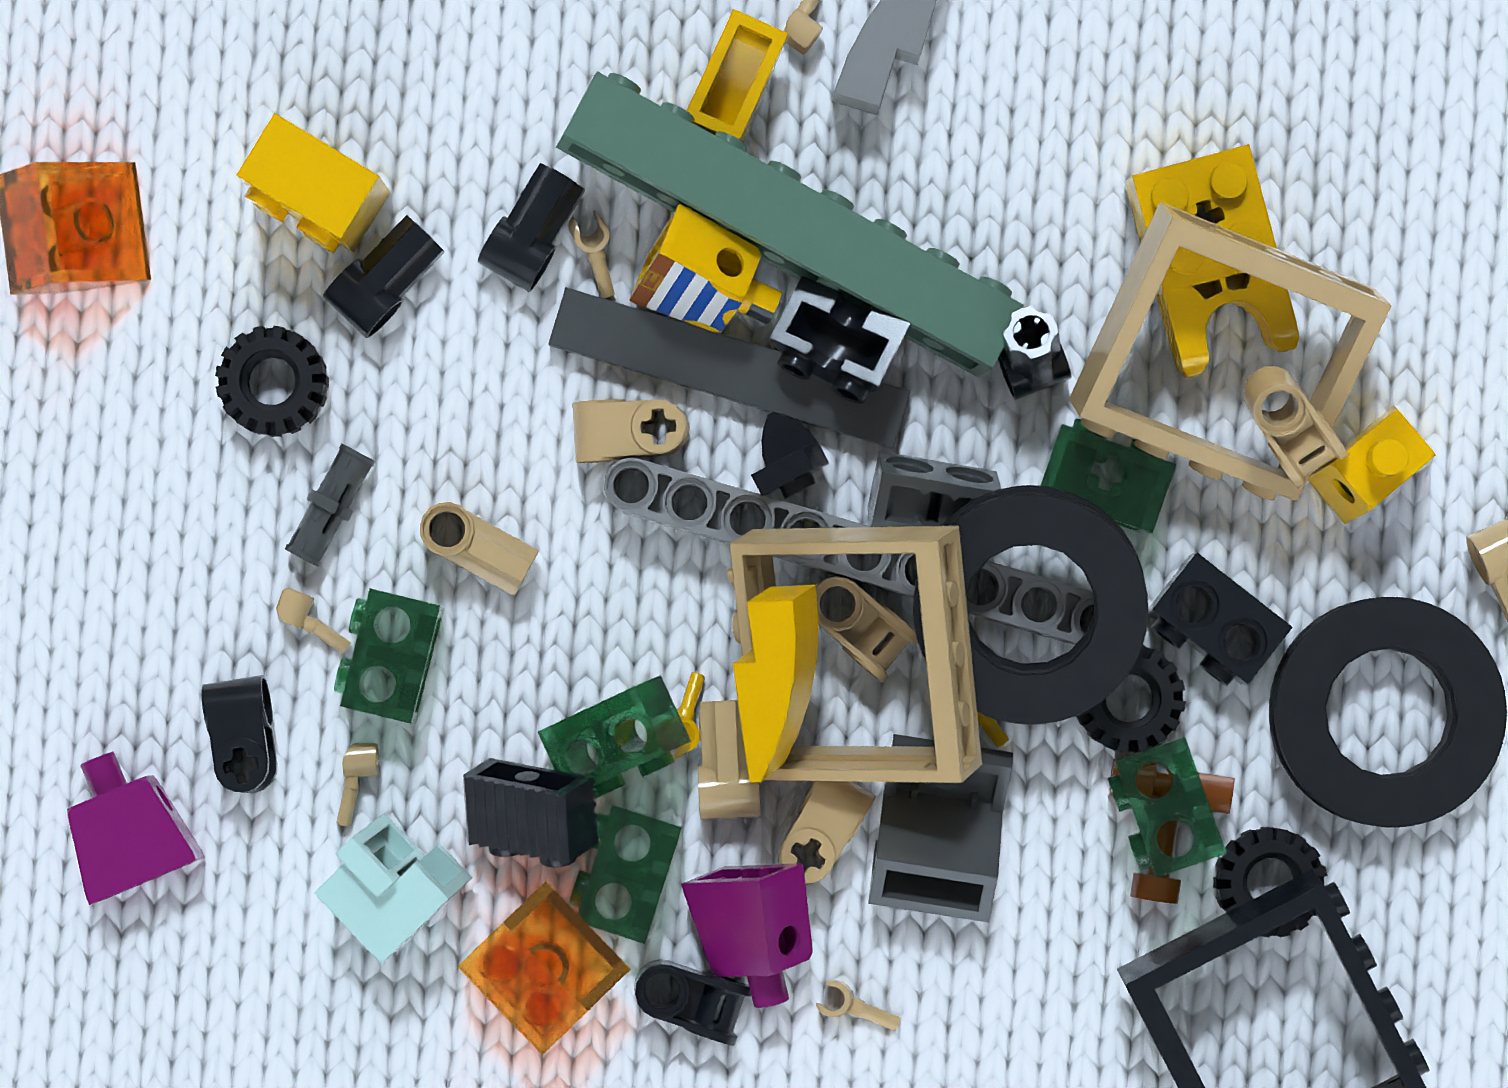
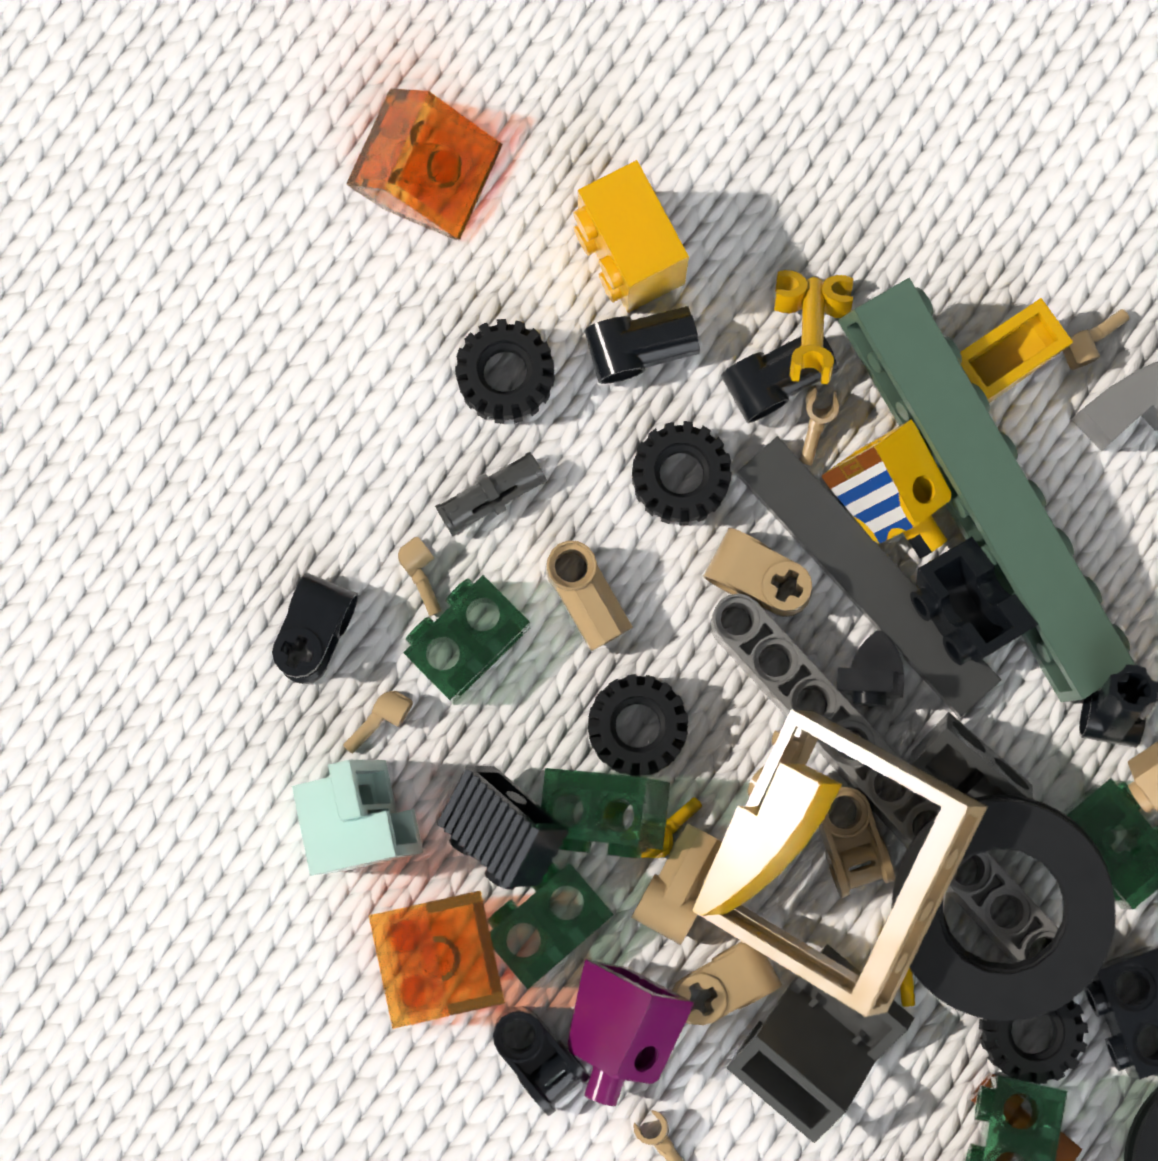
camera: 35 degrees right, 5 degrees down
(126, 831) = (176, 650): magenta torso -> none
(488, 341) = (686, 440): none -> black tyre
(520, 134) = (815, 299): none -> yellow bar
(562, 631) = (647, 692): none -> black tyre

